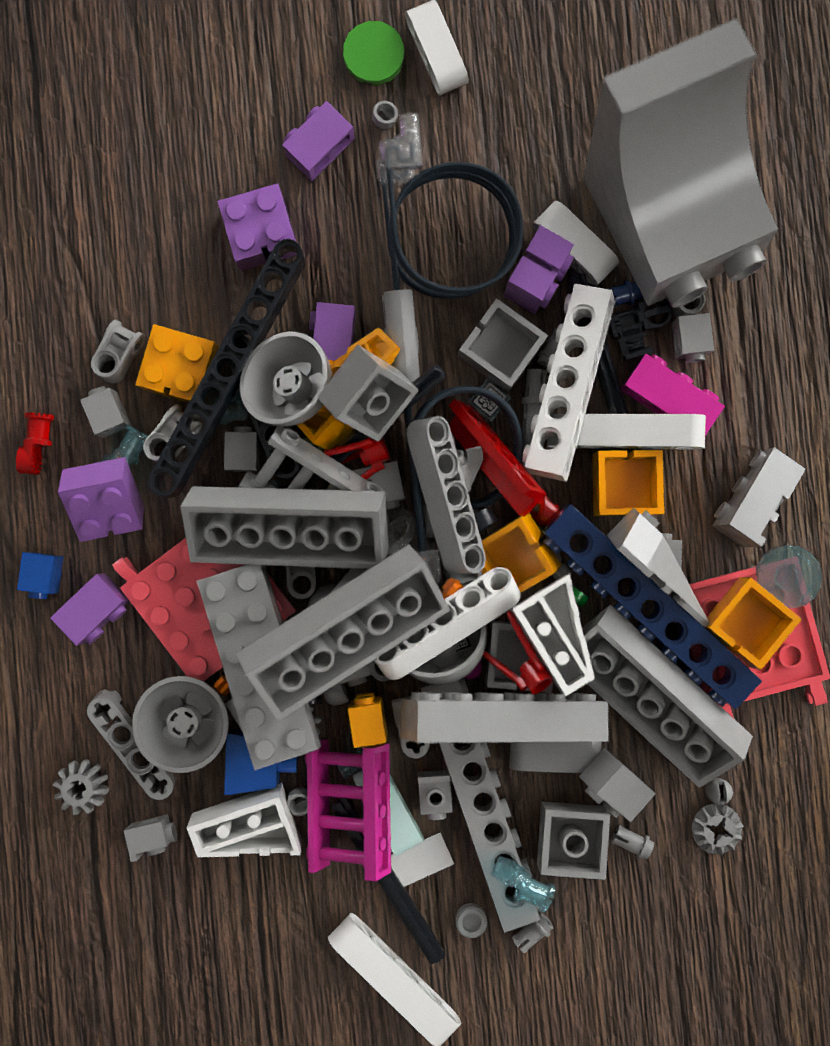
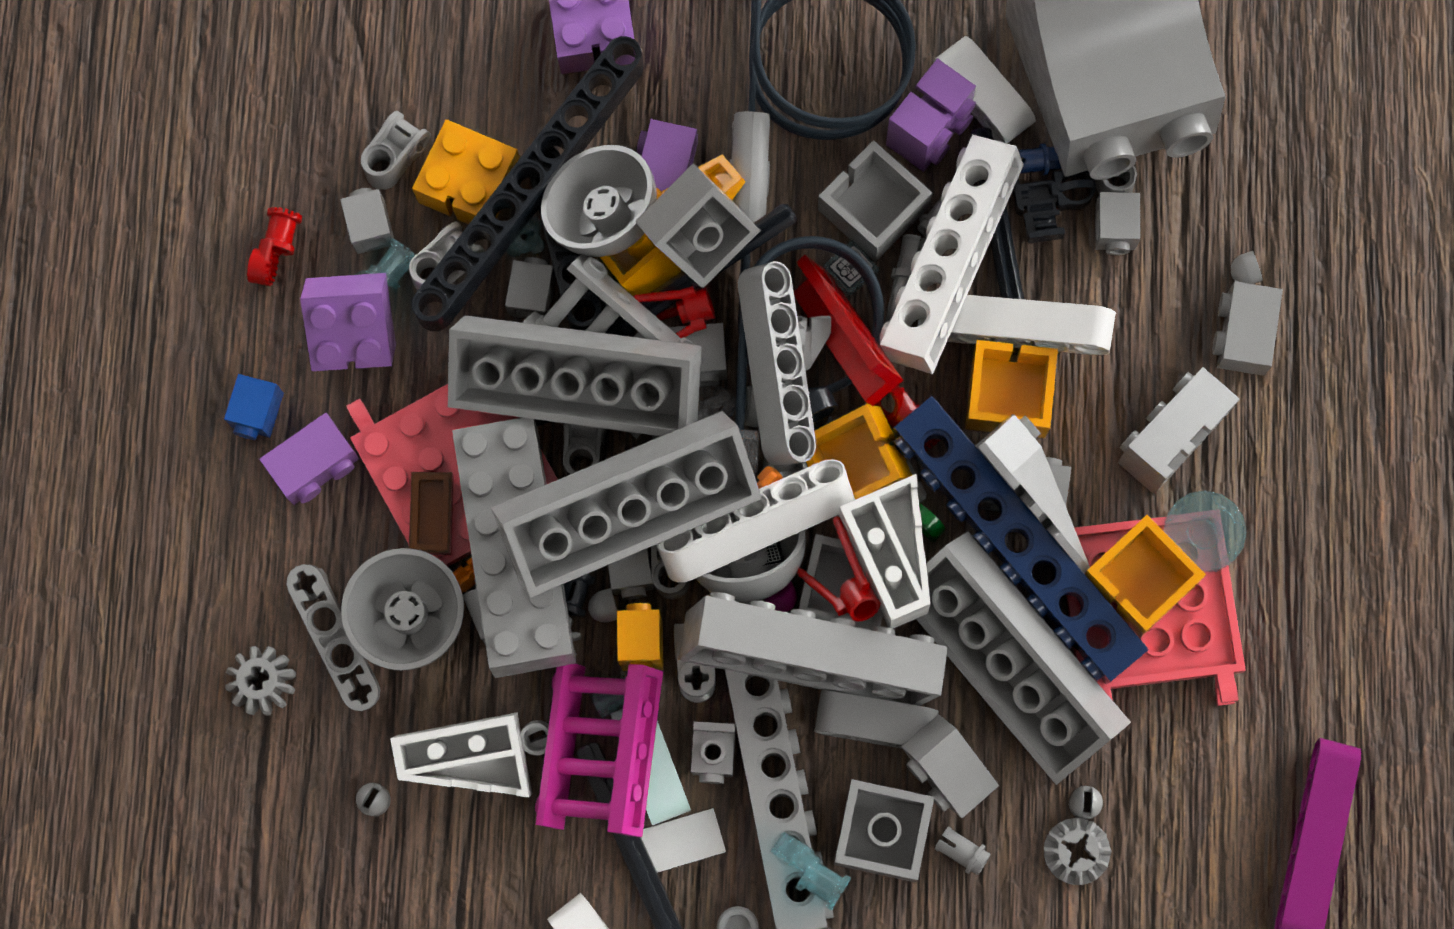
camera: 15 degrees right, 10 degrees down
(149, 836) = (338, 756): light grey brick -> none
(189, 863) = (379, 804): none -> light grey hinge
(191, 641) = (431, 512): none -> reddish brown tile
(239, 770) = (475, 689): blue torso -> none
(669, 392) = (1066, 276): dark pink brick -> none
(795, 361) = (1246, 269): none -> light grey hinge
(803, 409) = (1248, 328): none -> light grey brick

